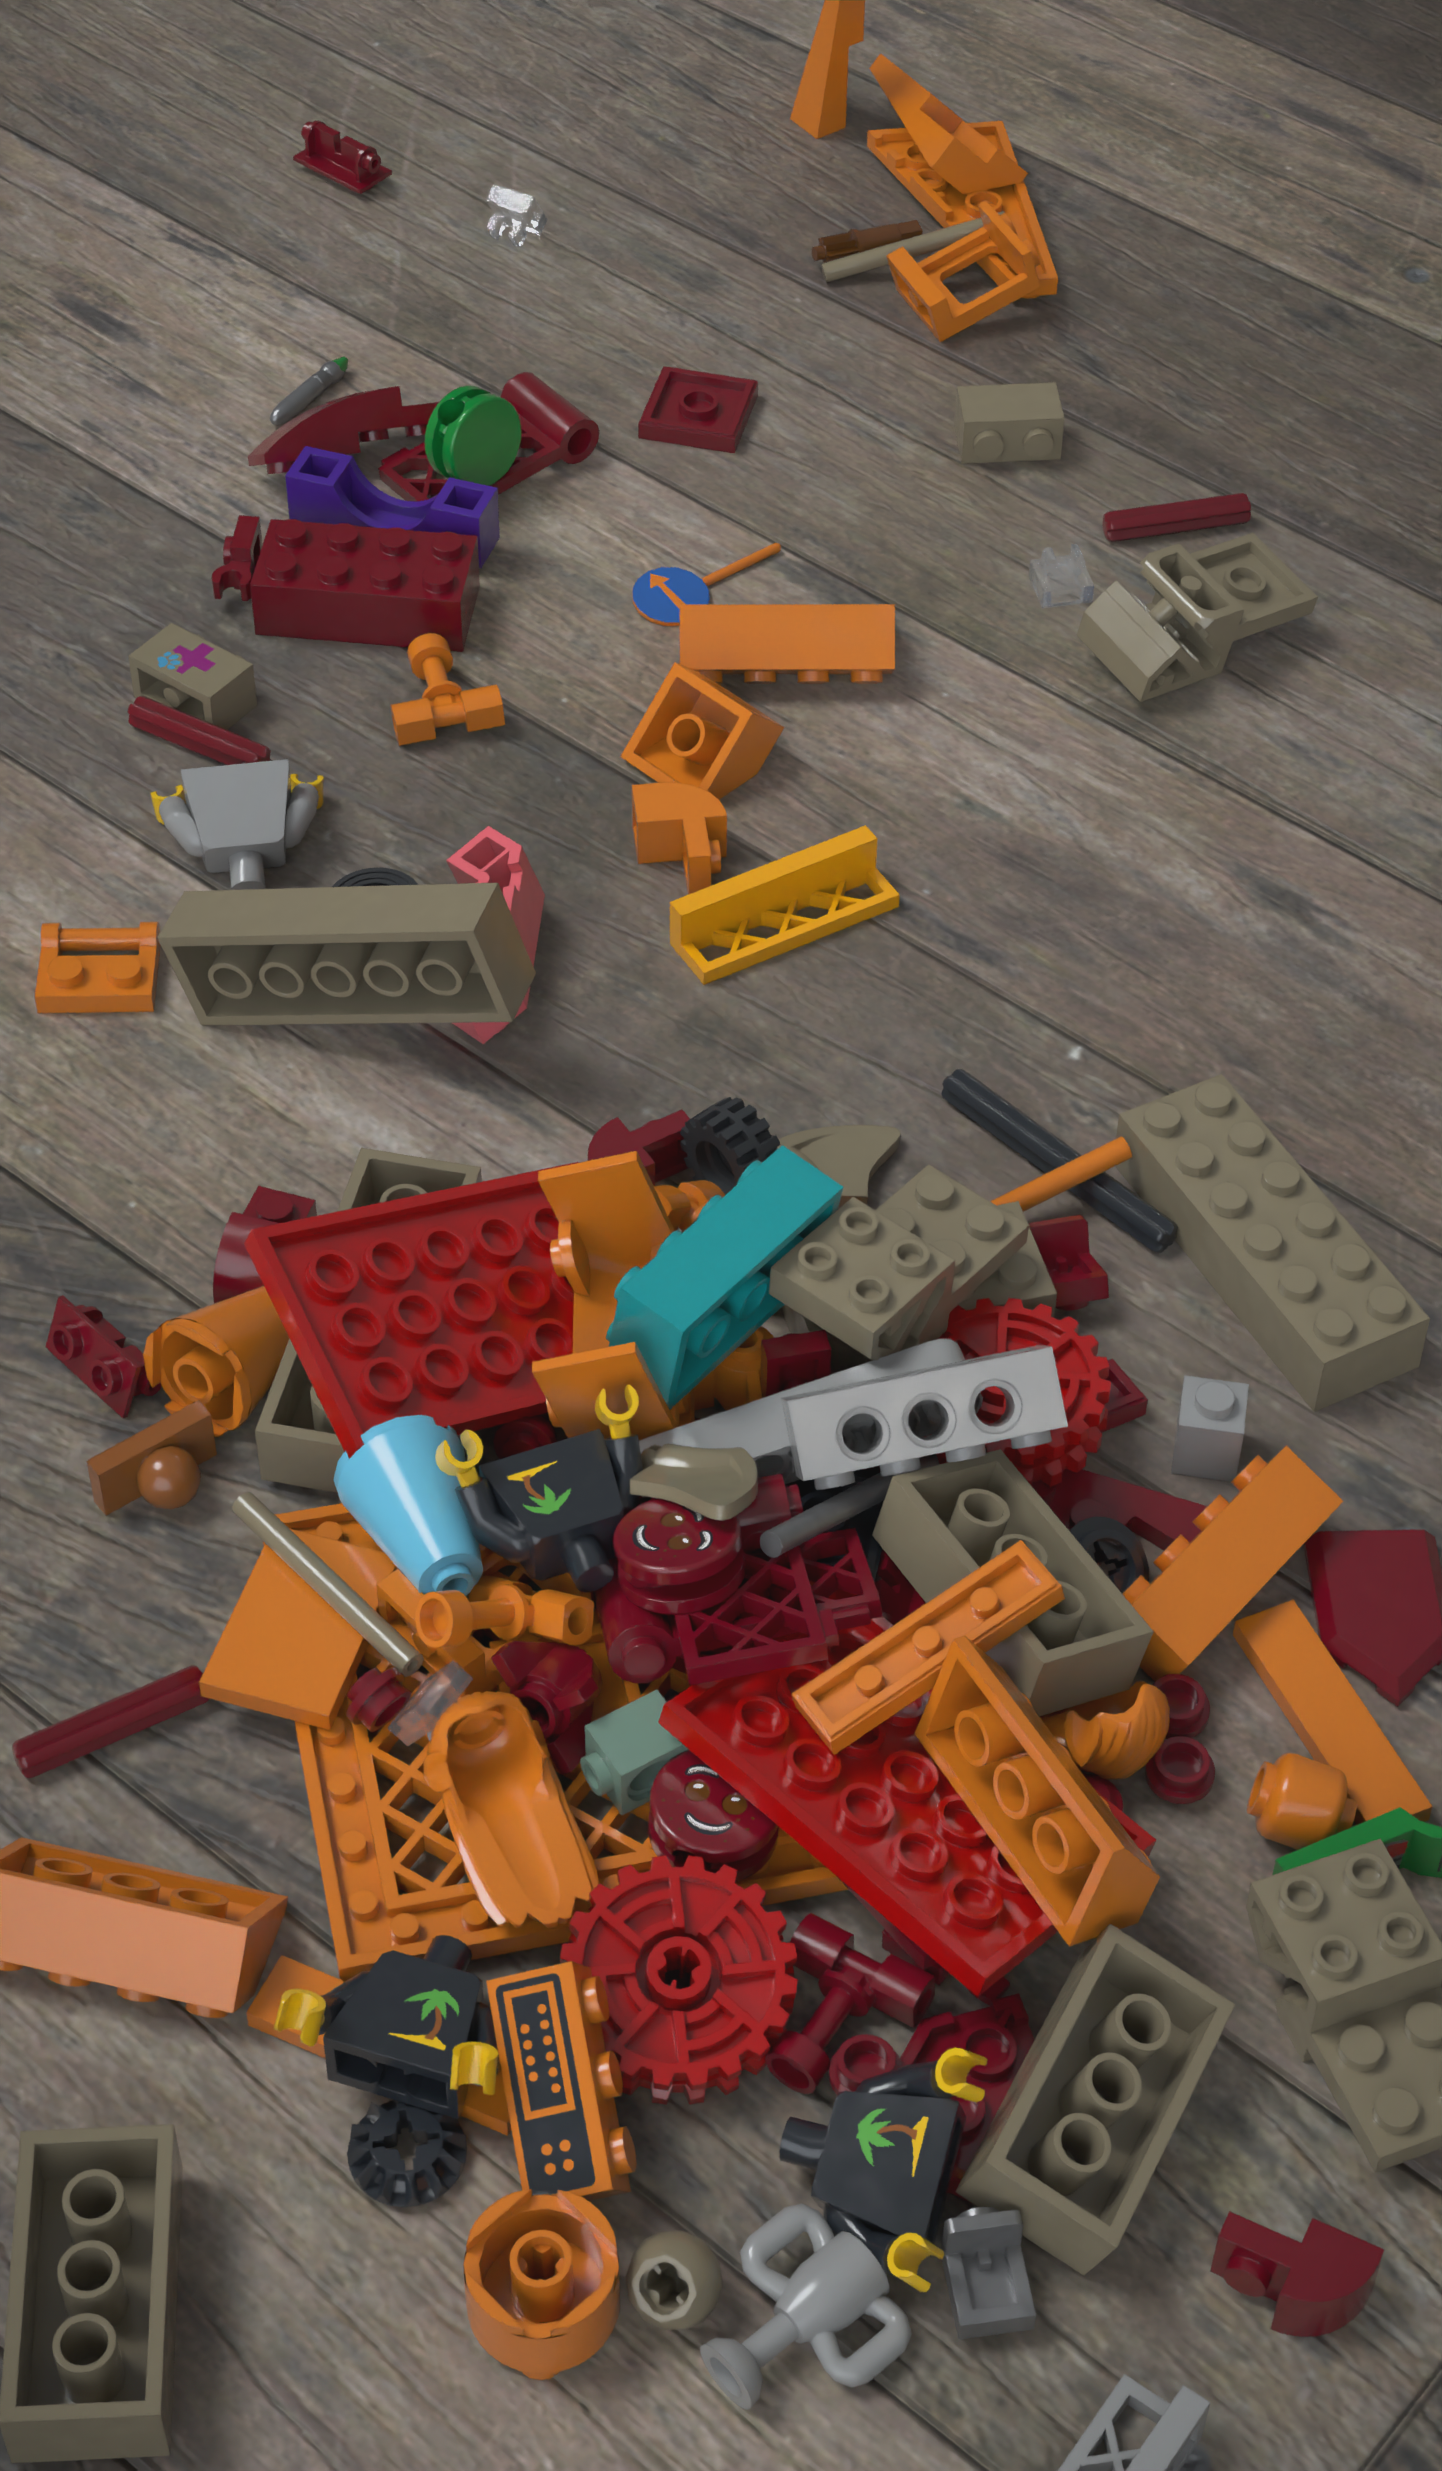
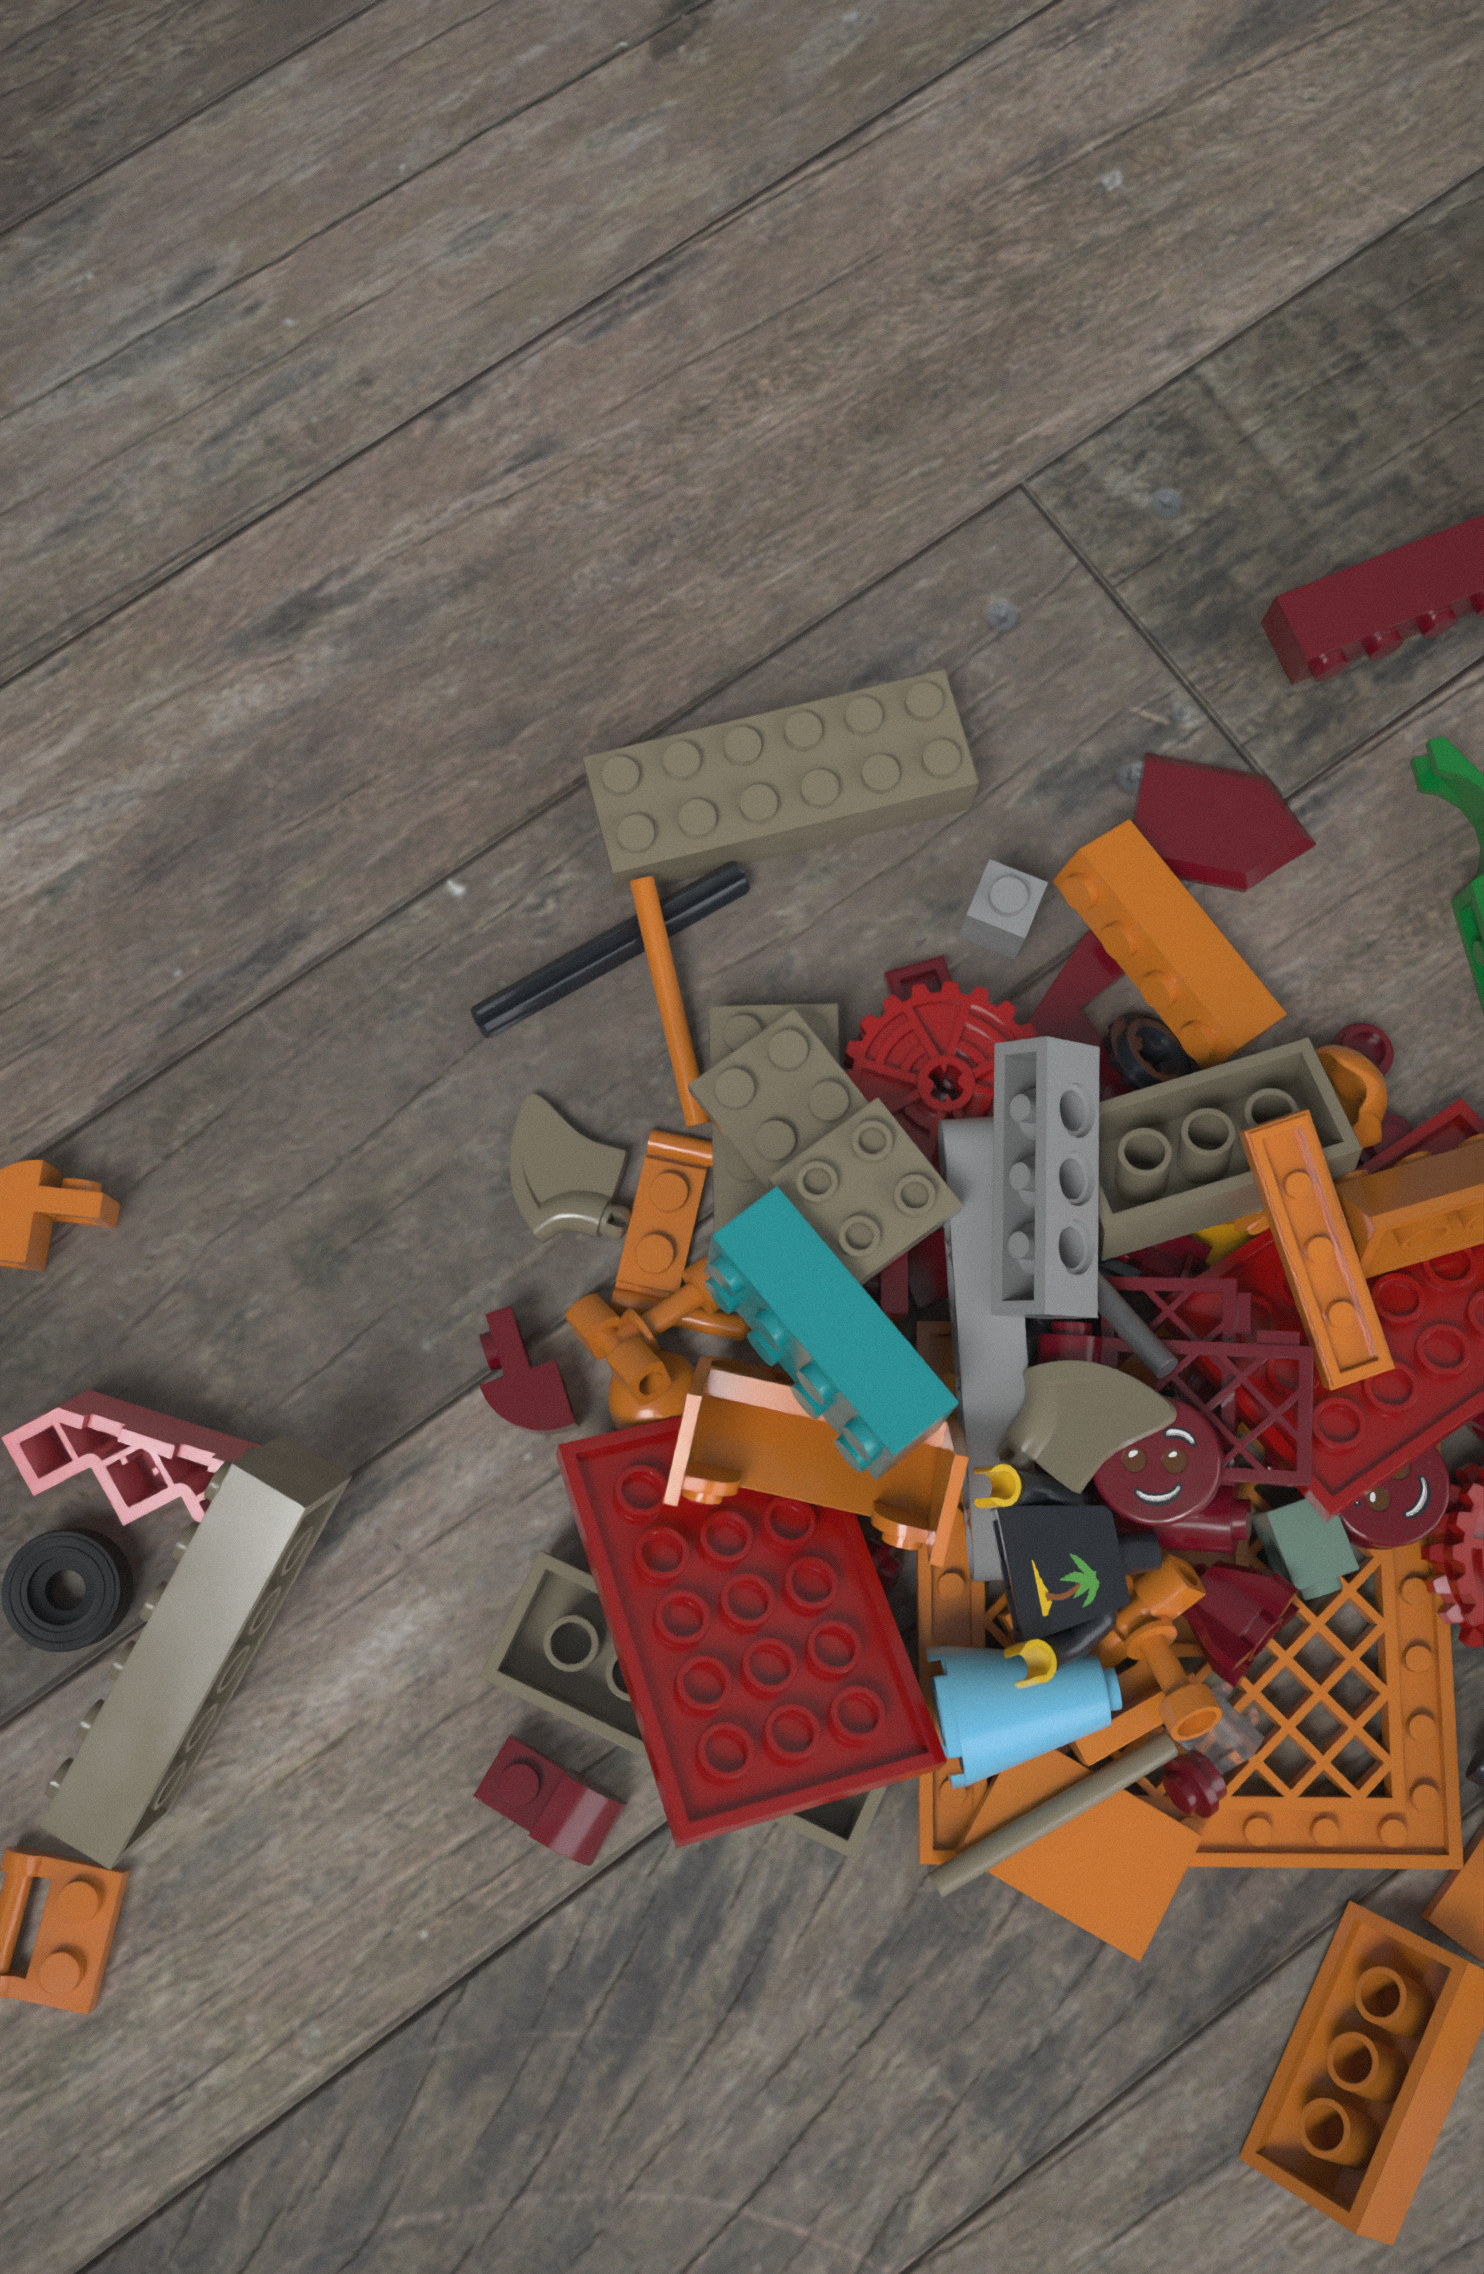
camera: 80 degrees left, 30 degrees up
(97, 1356) = (633, 2016): dark red hinge -> none
(108, 1722) = (1126, 2051): dark red axle -> none
(155, 1462) = (833, 1957): dark orange tile -> none
(219, 1357) = (707, 1883): orange cone -> none
(508, 1811) = (1365, 1680): orange hair -> none
(725, 1142) = (559, 1274): black tyre -> none
(771, 899) = (155, 1137): light orange fence -> none
(1069, 1262) = (768, 977): dark red bracket -> none
(1187, 1705) = (1296, 1025): dark red plate -> none
(1300, 1801) = (1425, 962): orange head -> none
(1328, 1711) = (1332, 906): orange tile -> none

